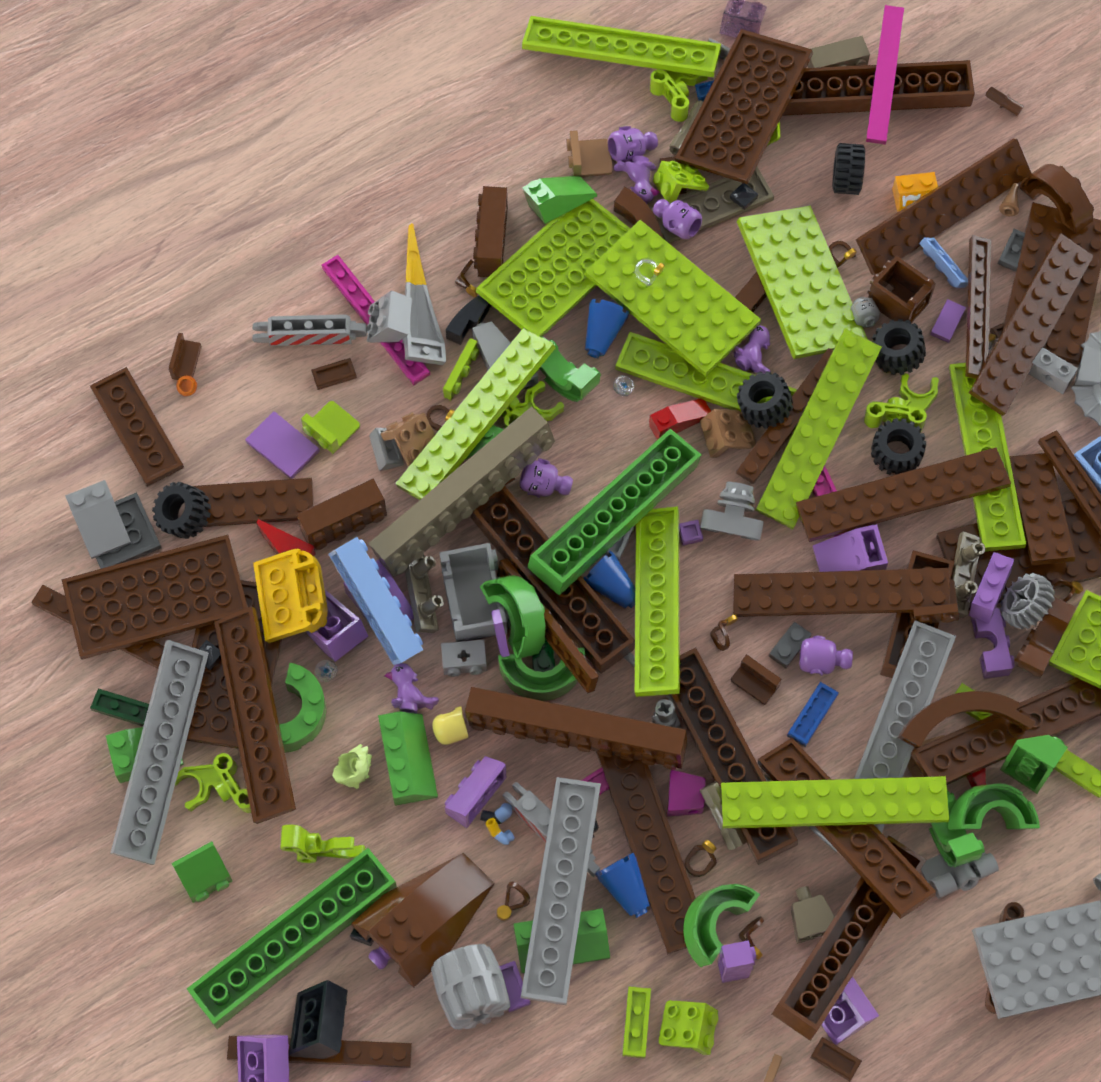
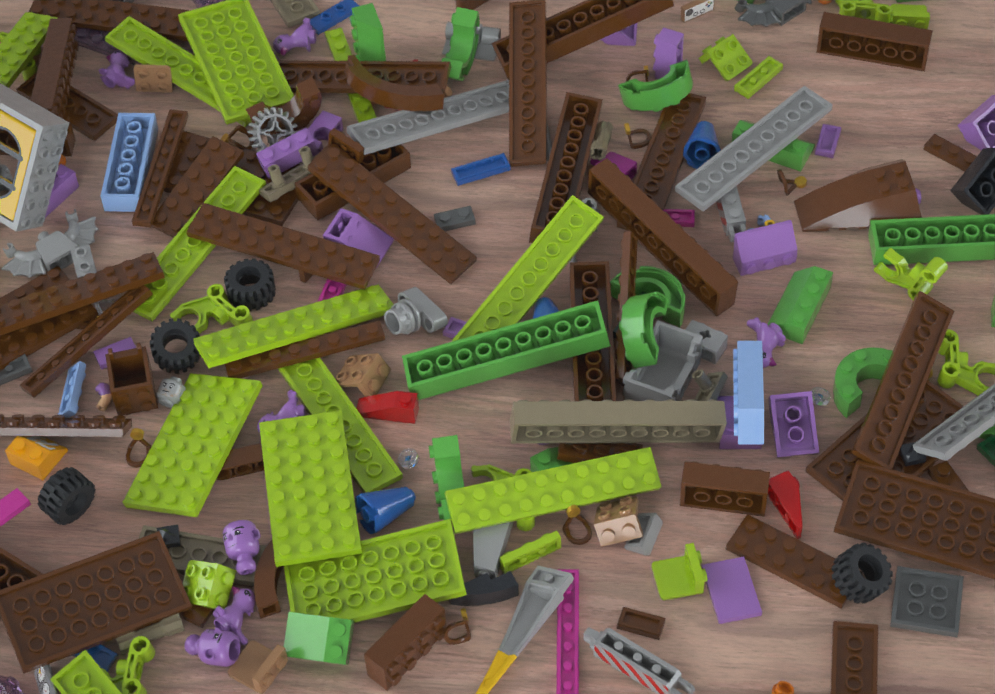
camera: 140 degrees left, 15 degrees down
(98, 519) = (942, 613): light grey slope -> none
(290, 594) = (813, 449): yellow plate -> none
(353, 767) = (849, 315): yellowish green hair -> none
(389, 318) = (560, 621): light grey slope -> none
(450, 727) = (753, 297): light yellow helmet -> none
(470, 986) = (861, 135): light grey wheel -> none
(500, 633) = (669, 313): medium lavender tile -> none
(659, 268) = (307, 489): clear piece -> none
(721, 624) = (483, 255): reddish brown piece -> none
(756, 680) = (500, 211): reddish brown panel -> none
(765, 413) = (321, 344): black tyre -> none
(810, 915) = (593, 65): dark tan torso -> none
(821, 656) = (441, 191): medium lavender piece -> none
(834, 802) = (525, 90): lime plate -> none
(1007, 800) = (426, 46): bright green brick -> none

